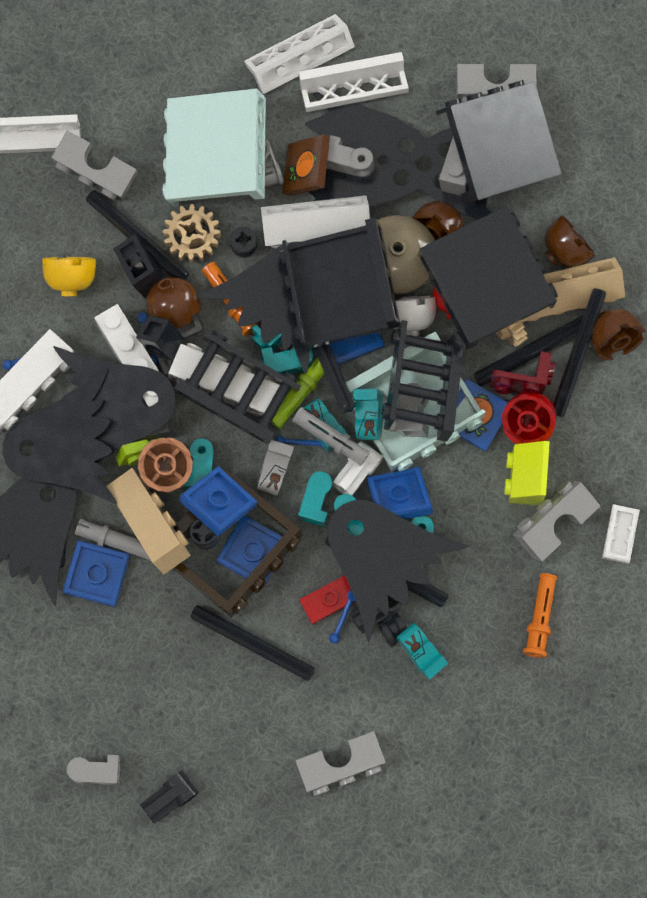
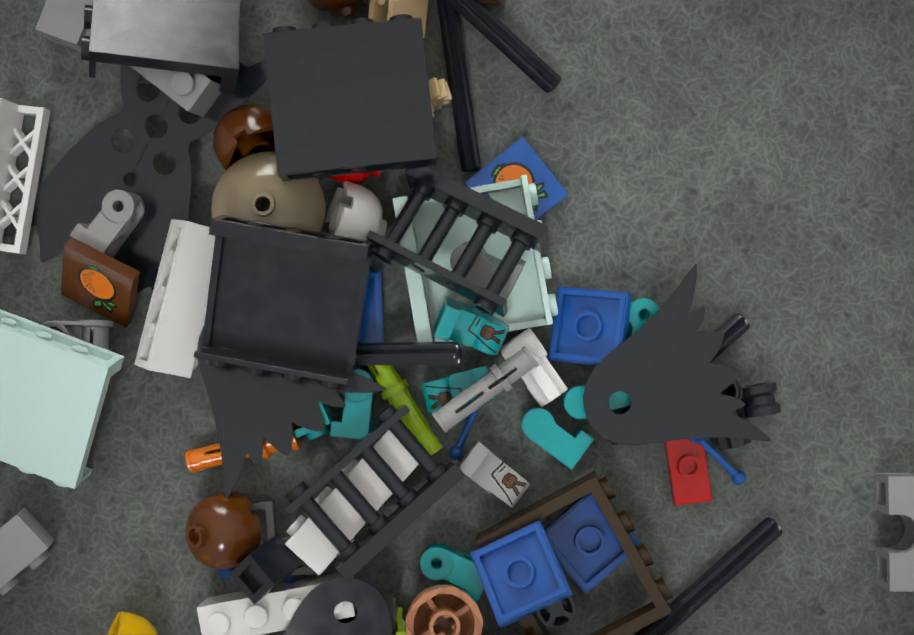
camera: 70 degrees left, 10 degrees up
(124, 225) = (111, 540): black axle -> none
(138, 265) = (153, 556): black arch -> none
(181, 228) = (147, 477): tan gear -> none
(243, 248) = (181, 404): black wheel -> none
(421, 651) = (806, 375): teal leg -> none
(510, 382) = (501, 81): dark red bracket -> none
(528, 473) = (624, 149): neon yellow slope -> none
(529, 418) = (554, 121): red cylinder -> none
(537, 532) = (699, 165): light grey arch -> none
(539, 627) = (821, 214): orange pin -> none
(620, 534) = (738, 65): white plate -> none

